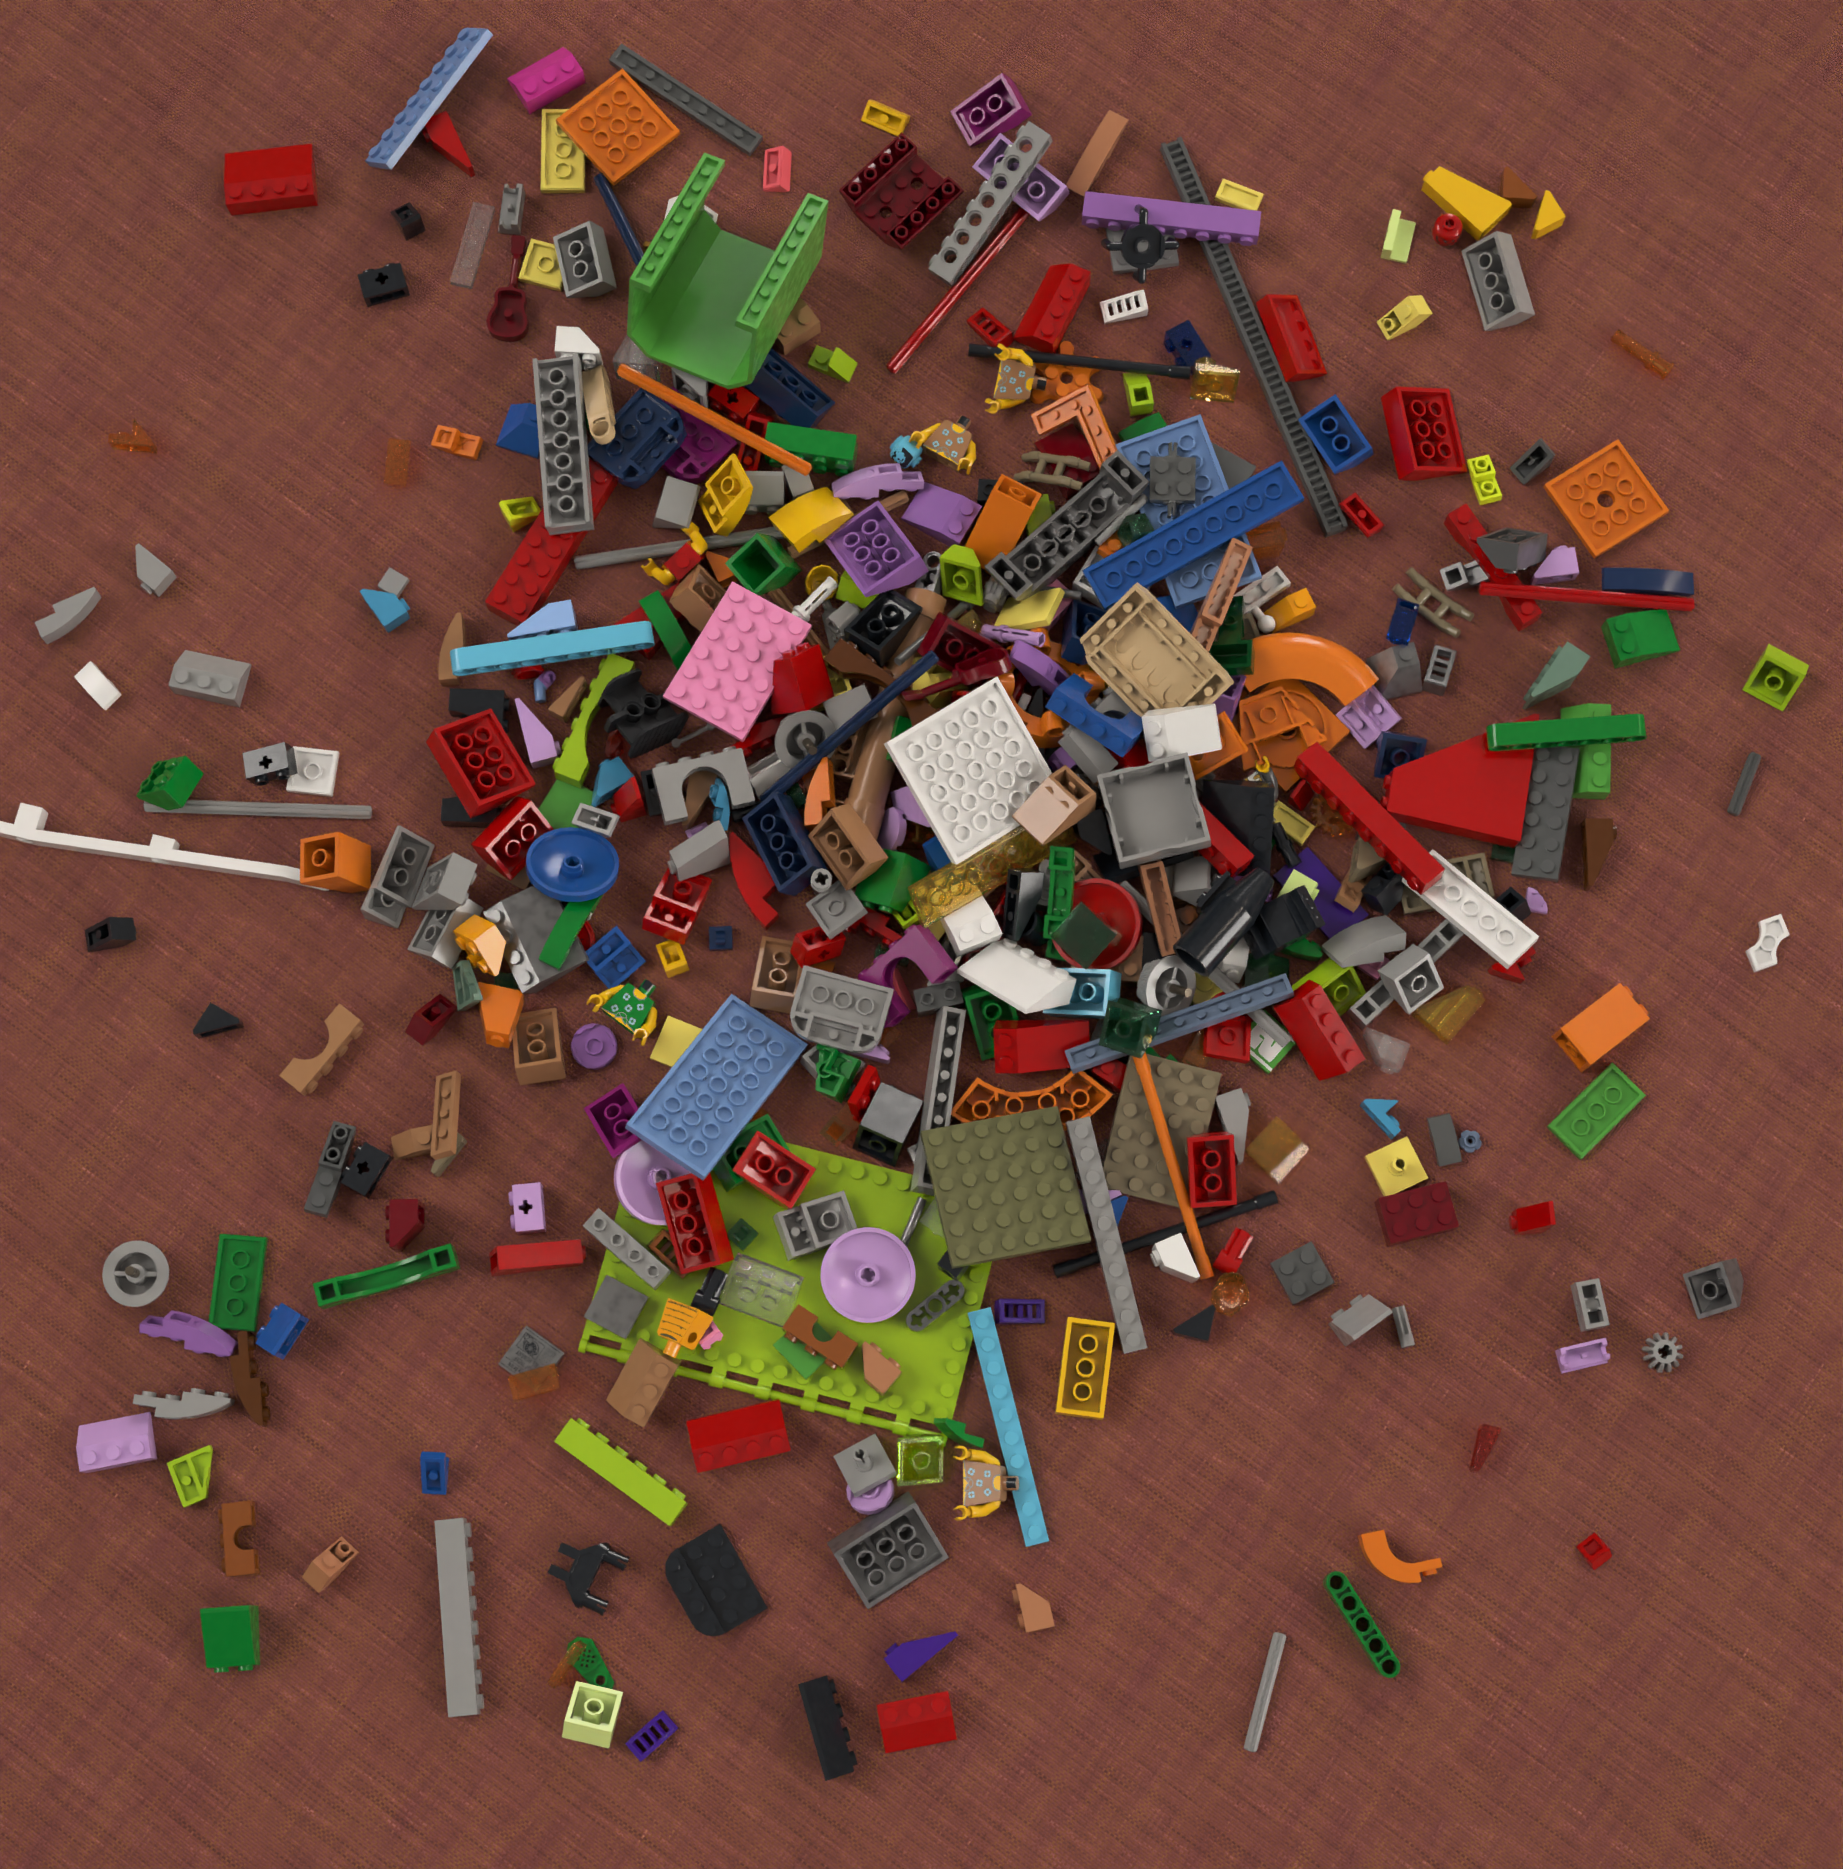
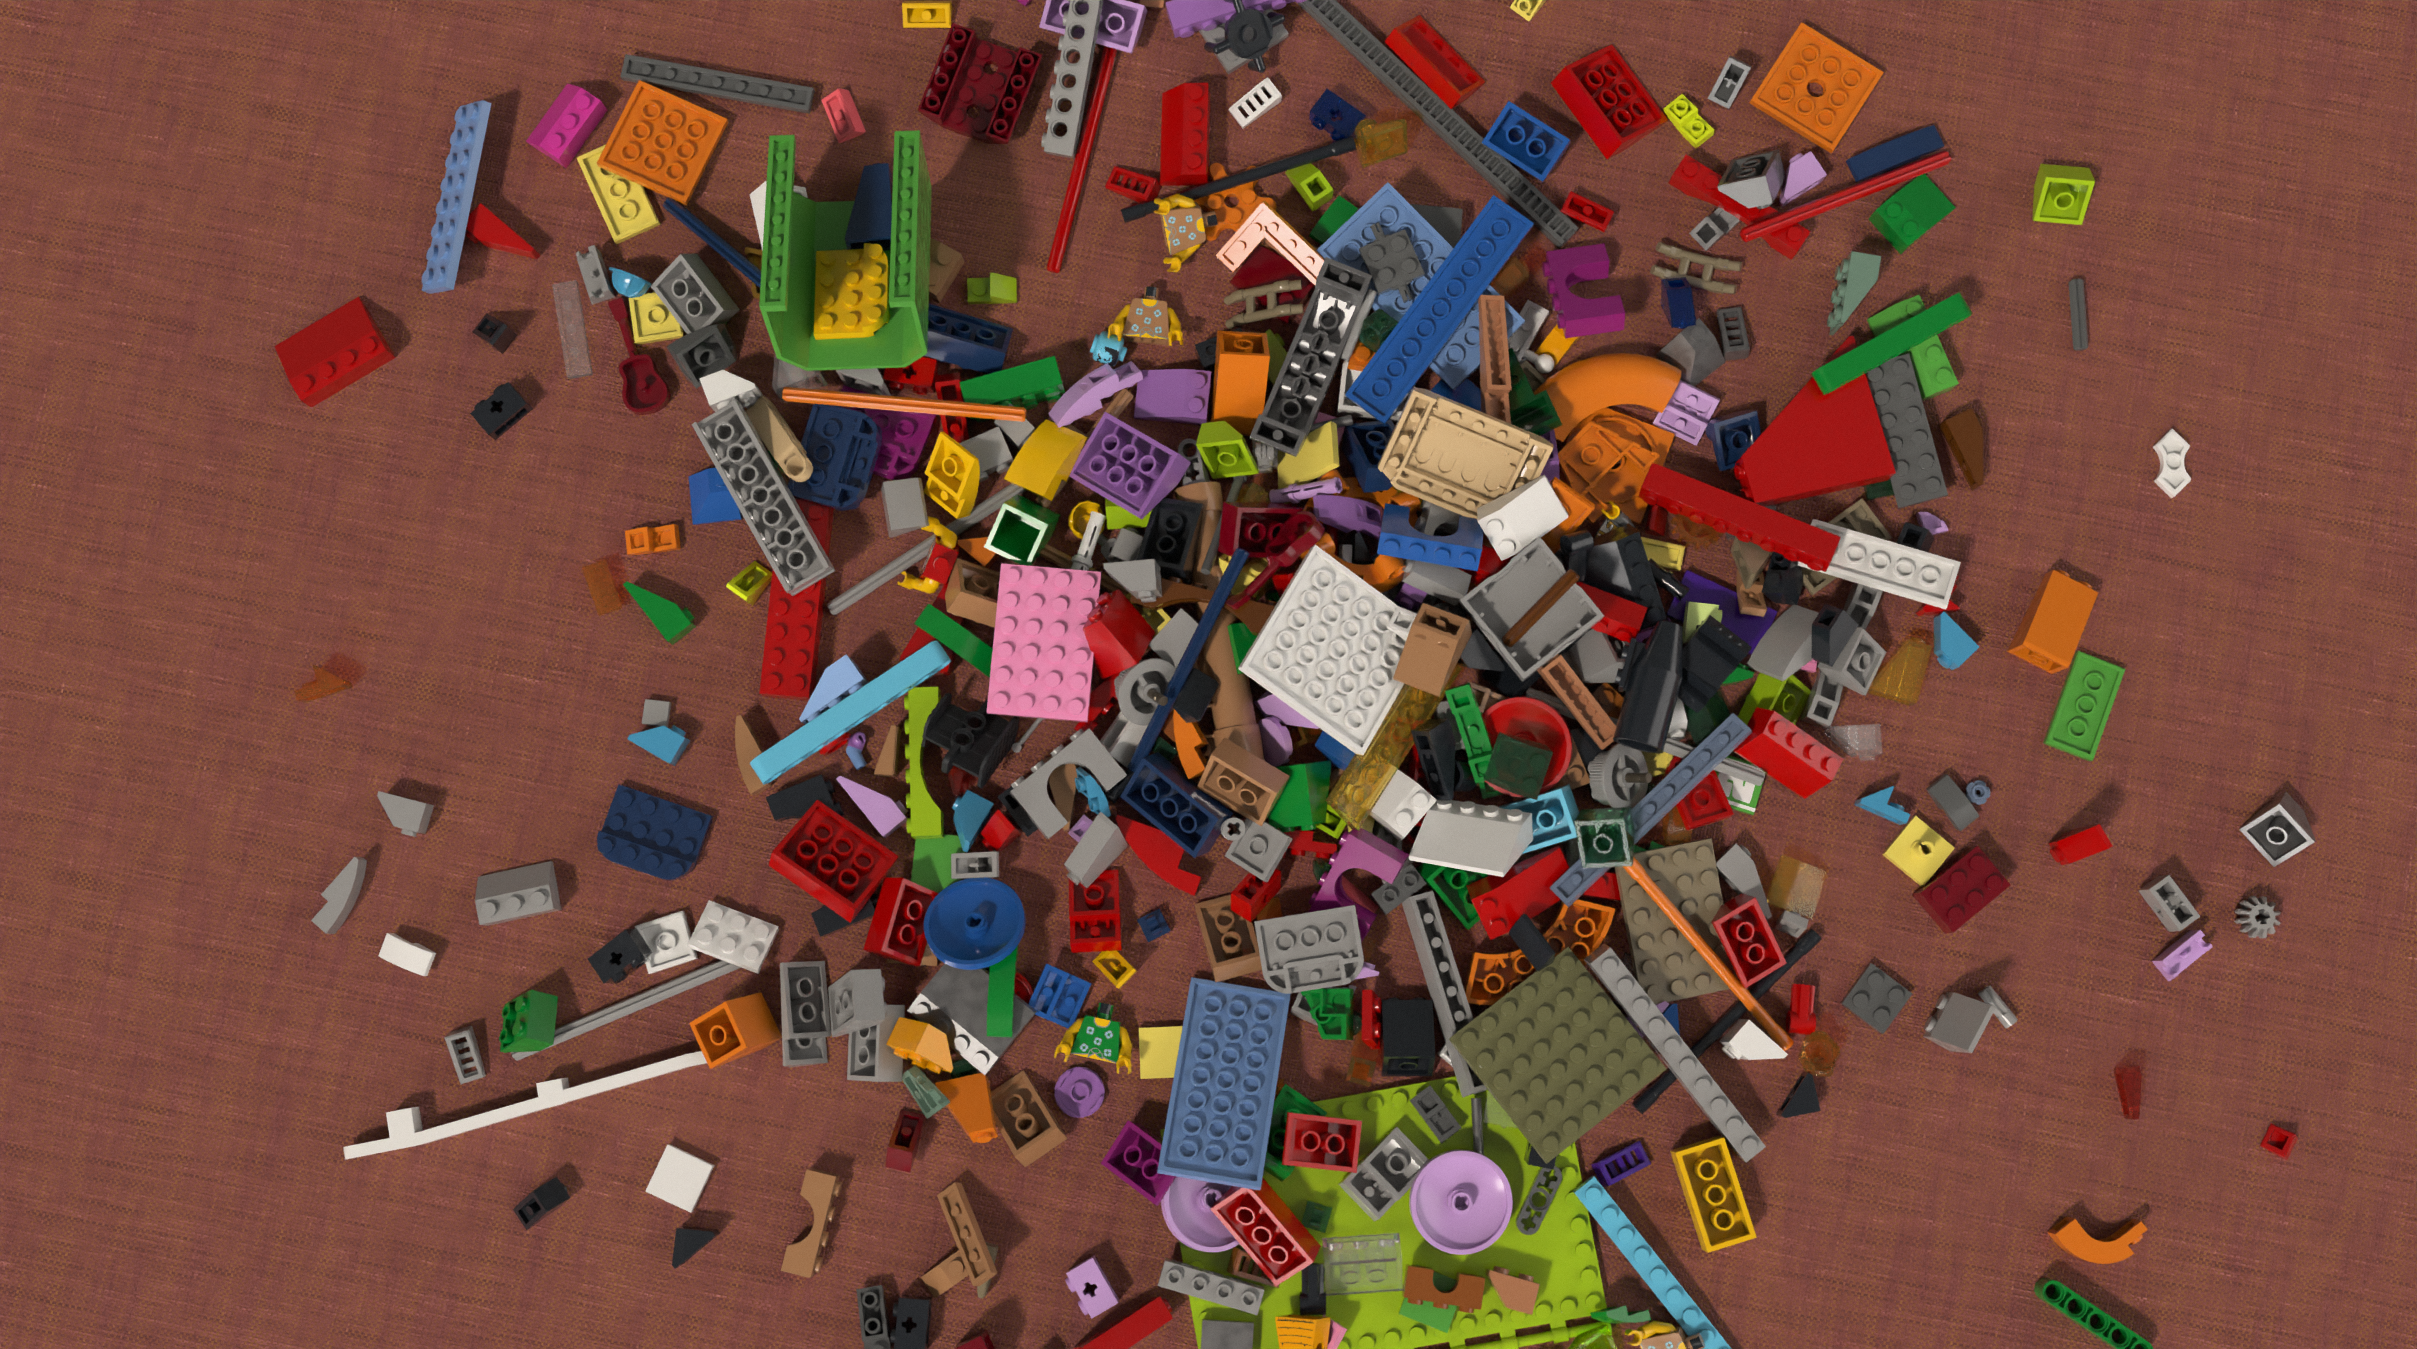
camera: 20 degrees left, 5 degrees up
(117, 773) = (474, 1052): none -> light grey slope
(232, 966) = (680, 1178): none -> white tile
(343, 679) = (652, 834): none -> dark blue plate
(369, 790) = (733, 936): none -> white plate
(438, 506) = (667, 616): none -> green slope
(535, 227) = (628, 284): none -> dark azure piece
(571, 308) = (703, 352): none -> dark grey slope
(710, 311) = (851, 292): none -> yellow plate
(752, 261) = (872, 209): none -> dark blue slope
(839, 638) = (1138, 577): none -> light grey slope
(841, 759) = (1195, 696): none -> black slope
(881, 1196) = (1435, 1114): none -> dark grey slope
(1027, 1088) = (1532, 943): none -> black slope
(1040, 773) = (1401, 622): none -> white slope
(1161, 811) = (1540, 608): none -> reddish brown axle
(1214, 779) = (1575, 550): none -> black piece
(1258, 1177) = (1791, 923): none -> light grey plate
(1315, 595) = (1576, 314): none -> magenta arch
(1400, 945) = (1831, 634): none -> black slope
(1505, 1007) = (1951, 642): none -> dark azure slope

